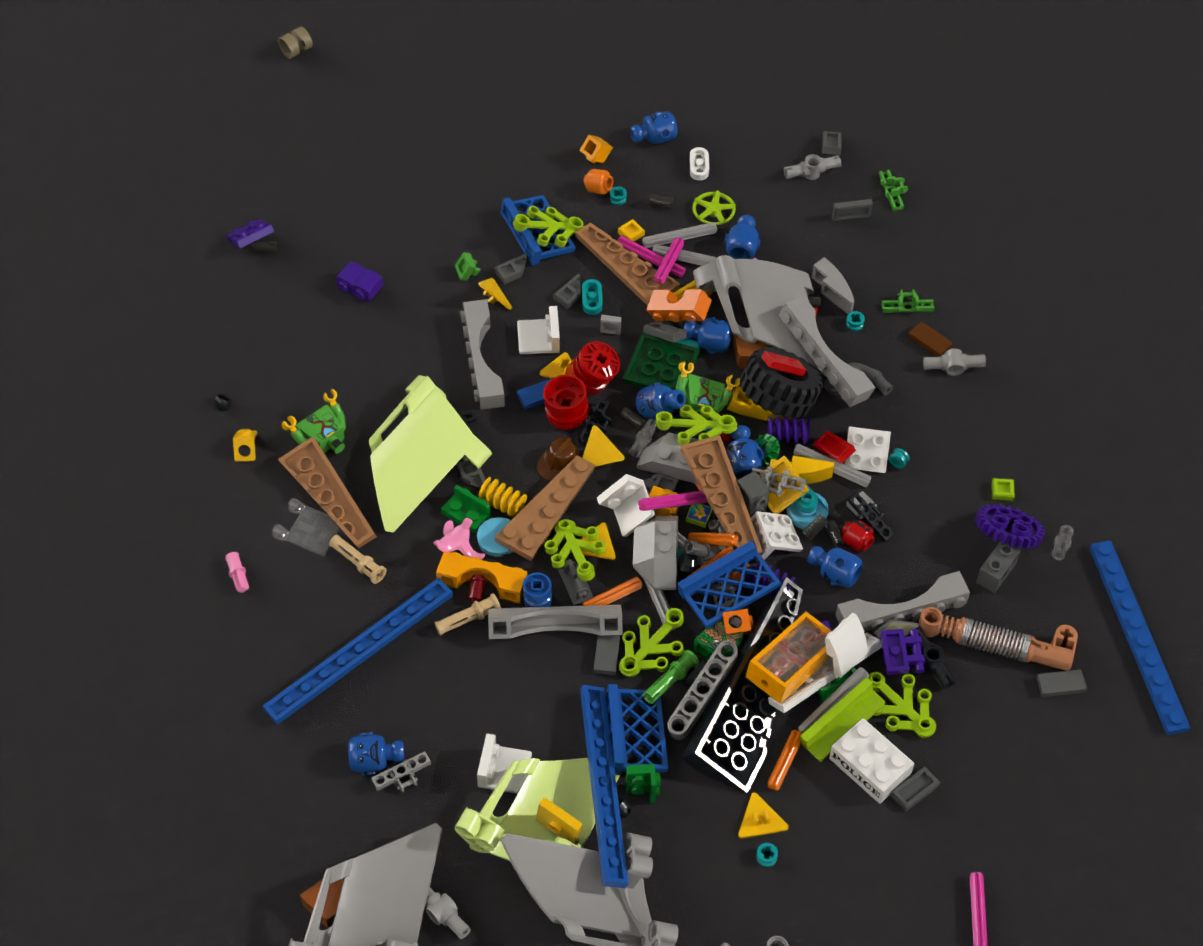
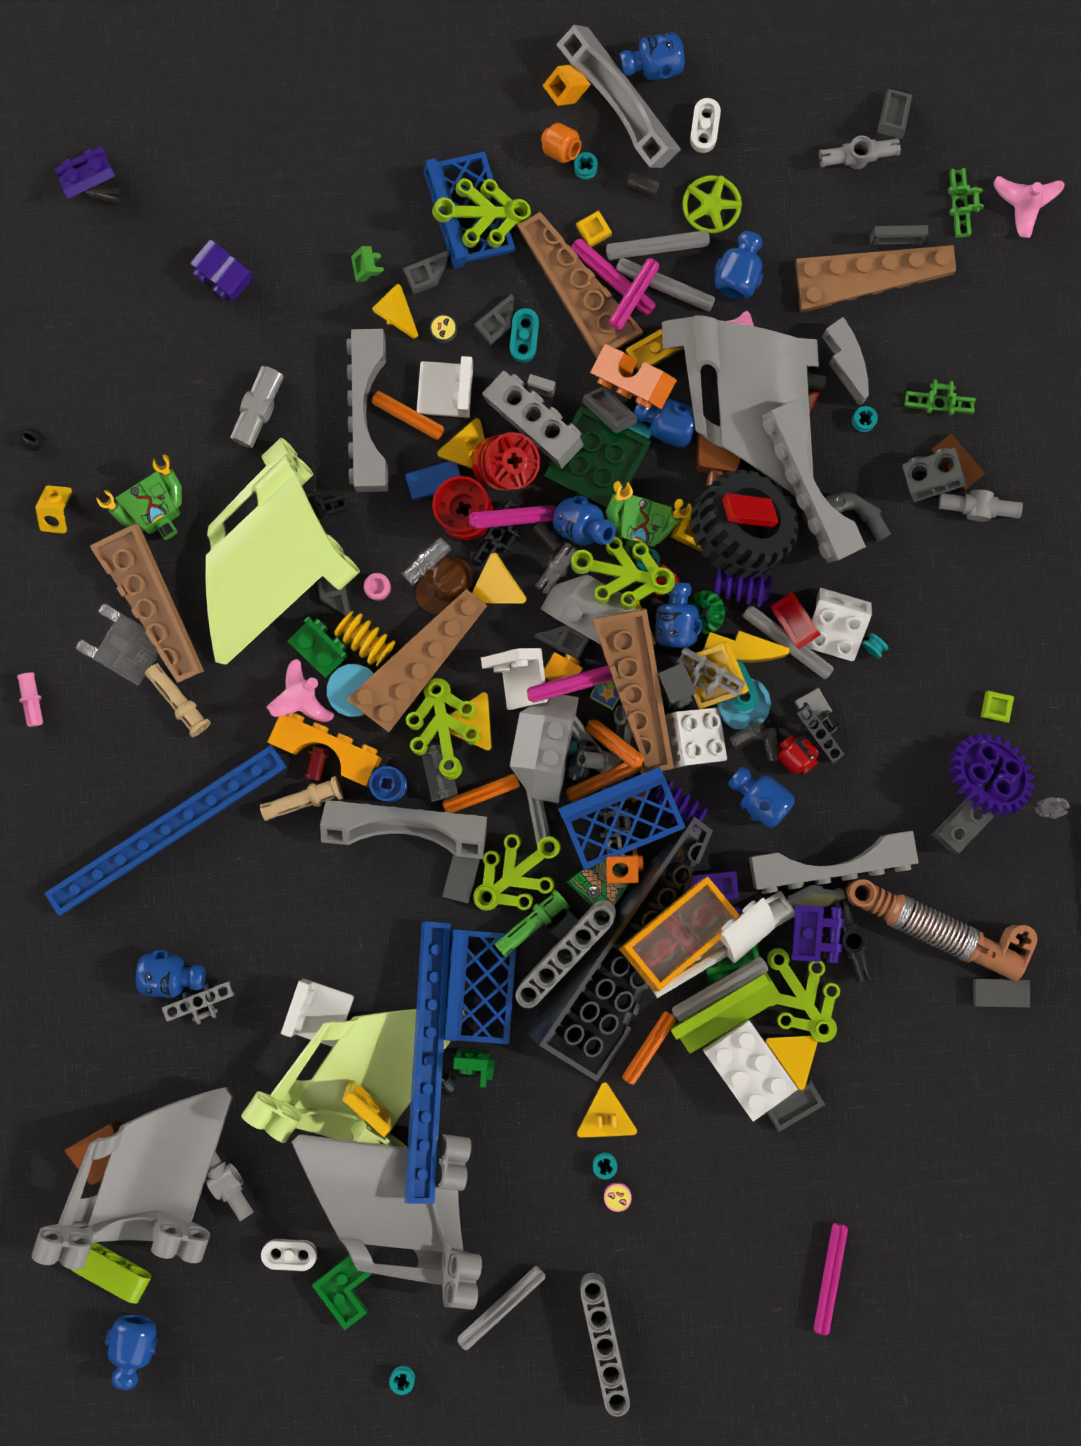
camera: 15 degrees right, 30 degrees up
(396, 361) = (257, 406): none -> light grey piece
(506, 466) = (377, 586): none -> bright pink tile
(512, 355) = (407, 415): none -> orange axle
(530, 300) = (443, 328): none -> tile
(541, 445) = (426, 561): none -> clear pin
(605, 399) = (512, 516): none -> dark pink axle
(630, 349) = (559, 449): none -> light grey brick
(635, 151) = (598, 67): none -> light grey arch
(782, 878) = (617, 1196): none -> tile
(808, 242) = (849, 276): none -> medium nougat wing
(907, 743) = (795, 1056): none -> yellow piece
(915, 343) = (935, 481): none -> dark grey brick
(938, 182) = (1027, 200): none -> bright pink piece

